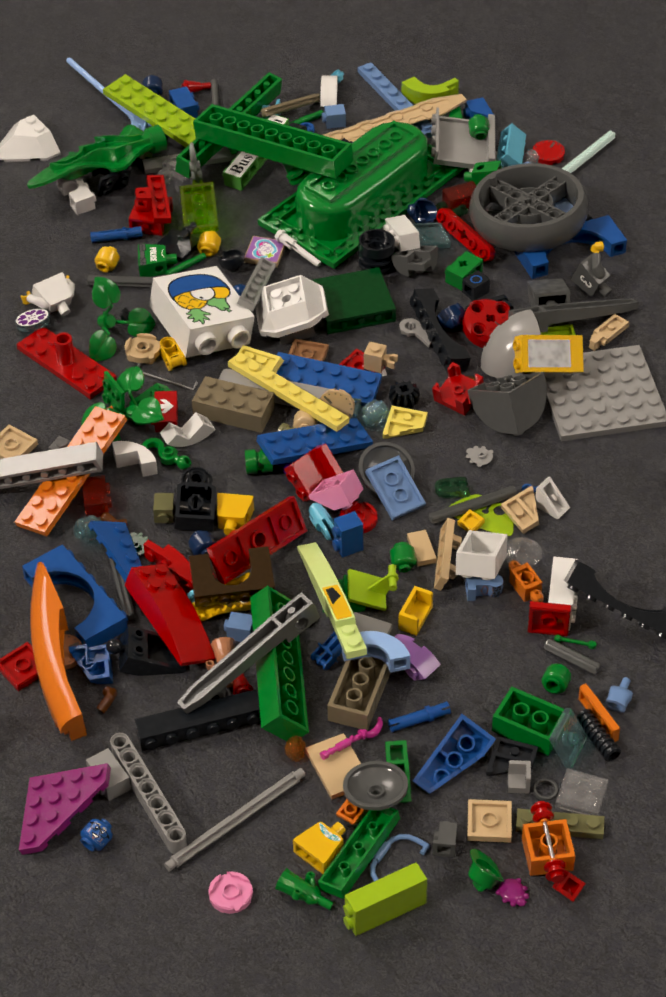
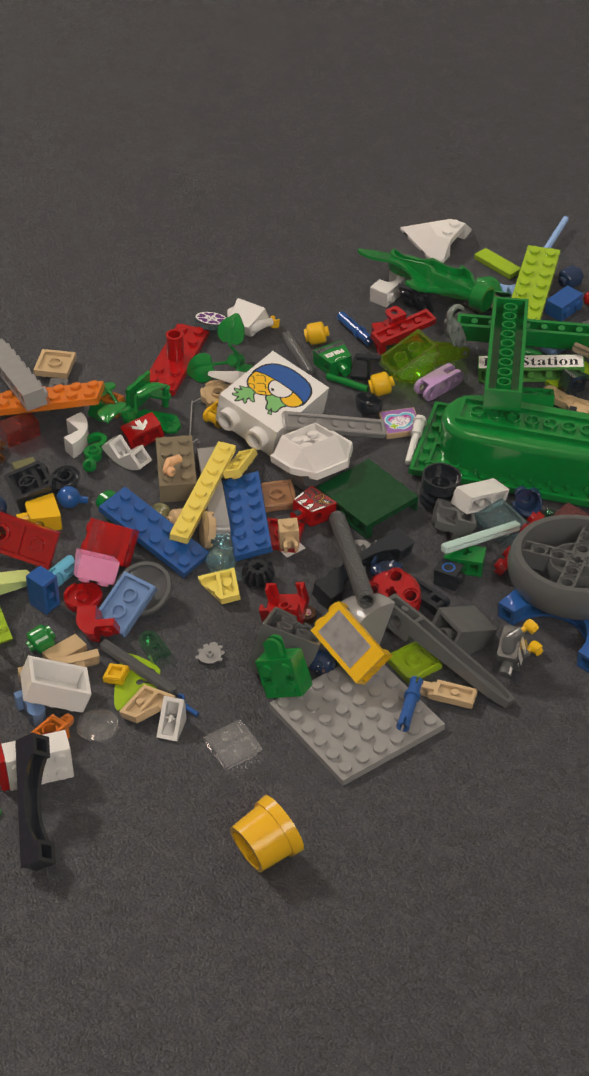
camera: 65 degrees right, 5 degrees down
(92, 122) = (497, 263): none -> lime tile
(137, 327) = (227, 376): none -> white slope
(224, 484) = (70, 497): none -> blue piece
(232, 210) = (439, 381): none -> lavender piece
(247, 397) = (169, 463): none -> light nougat arm
(342, 335) = (313, 507): none -> red torso
(408, 518) = (92, 625): none -> red brick
(447, 322) = (352, 560): none -> dark grey piece
(454, 248) = (480, 537): none -> light aqua axle
(549, 407) = (282, 669): none -> green brick
(595, 472) = (232, 744): none -> clear slope
(610, 348) = (412, 696): none -> blue pin

